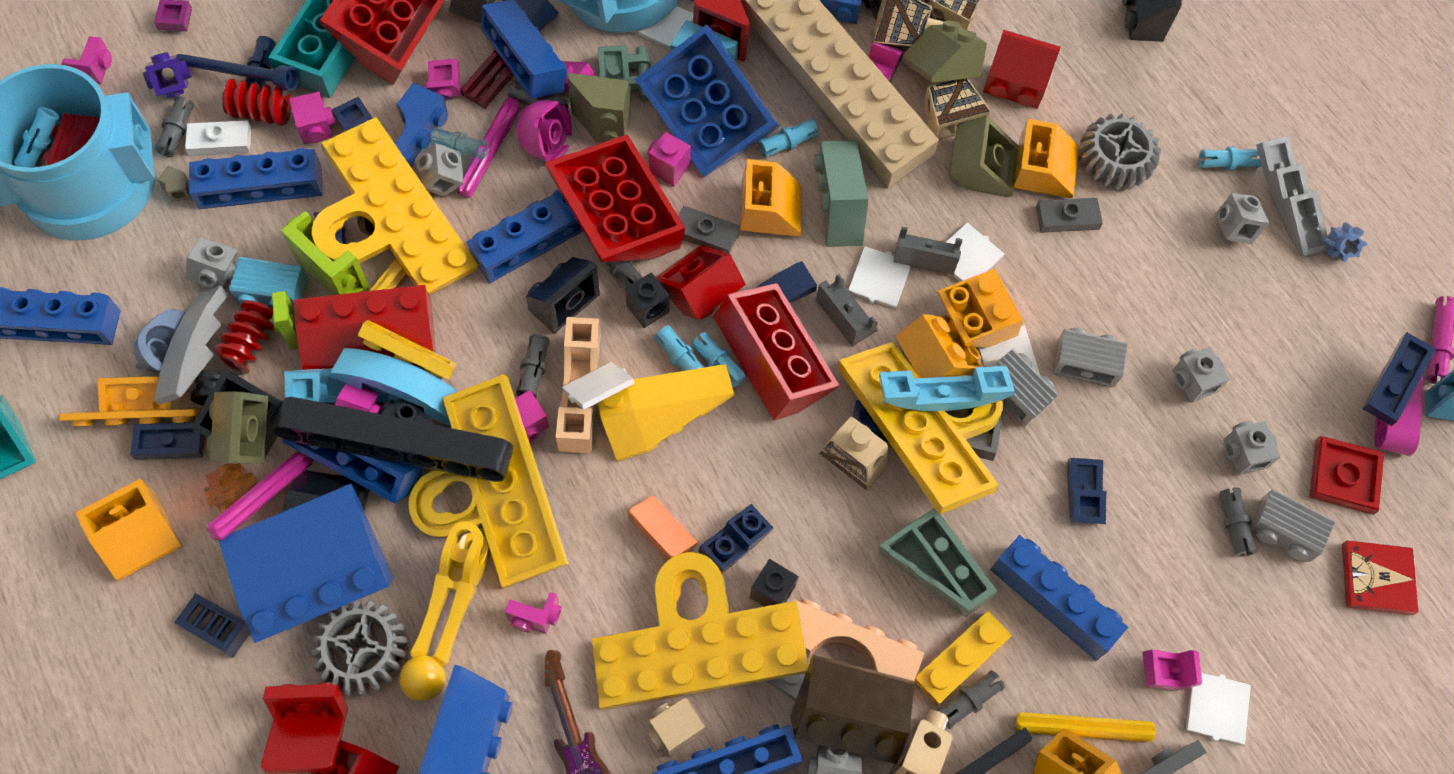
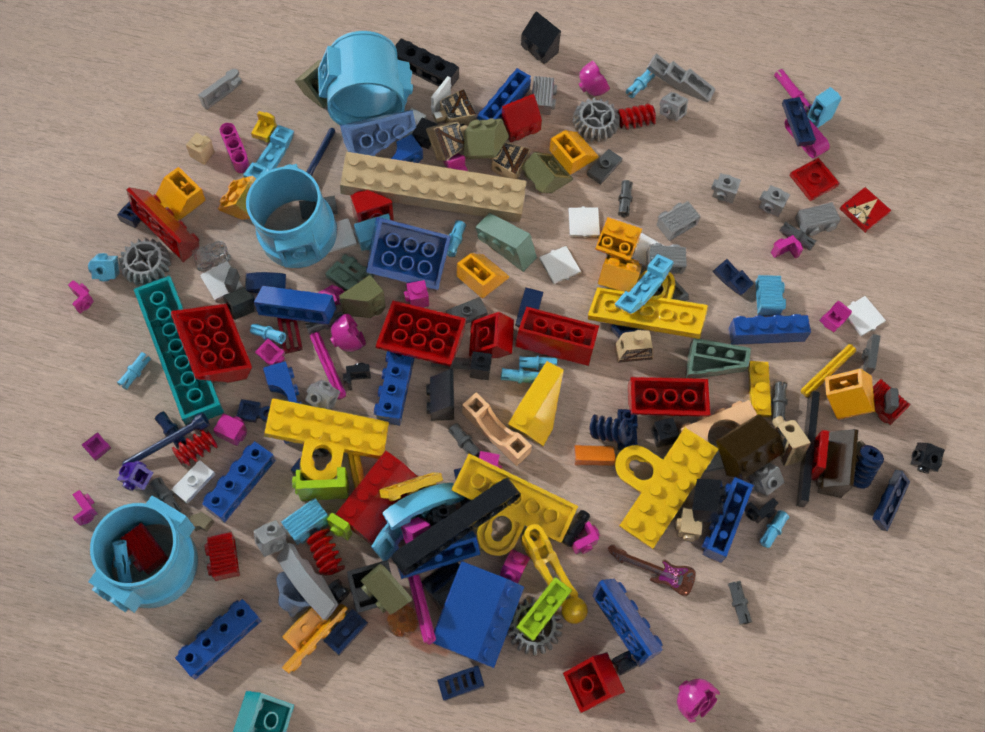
camera: 45 degrees left, 0 degrees up
(129, 529) = (380, 683): light orange slope -> none
(150, 238) = (222, 556): none -> red brick
(304, 728) = (553, 679): red bracket -> none
(380, 636) = (544, 609): none -> lime plate
(417, 558) = (514, 566): none -> dark pink bracket
(460, 142) = (315, 375): clear light blue pin -> none
(466, 56) = (268, 333): none -> medium azure axle
(504, 178) = (356, 372): none -> black bracket
(540, 589) = (576, 528): none -> black axle
(598, 385) = (508, 420): white piece -> none
(708, 516) = (611, 430): none -> dark blue piece
(720, 717) = (708, 500): none -> black brick
(824, 549) = (668, 396): none -> red slope
(845, 311) = (564, 293): dark grey hinge -> none
(927, 252) = (569, 235): dark grey hinge -> none
(1050, 272) = (625, 198): none -> dark grey pin
(1057, 26) = (513, 89): none -> blue brick
(1082, 68) = (544, 90): none -> light grey brick
(1109, 557) = (769, 295): none -> medium azure brick
(1167, 101) = (592, 80): none -> dark pink cylinder
(1178, 191) = (637, 115): none -> red piece
(1203, 516) = (789, 244): none -> dark pink bracket
(1352, 245) = (720, 81): medium blue gear -> none

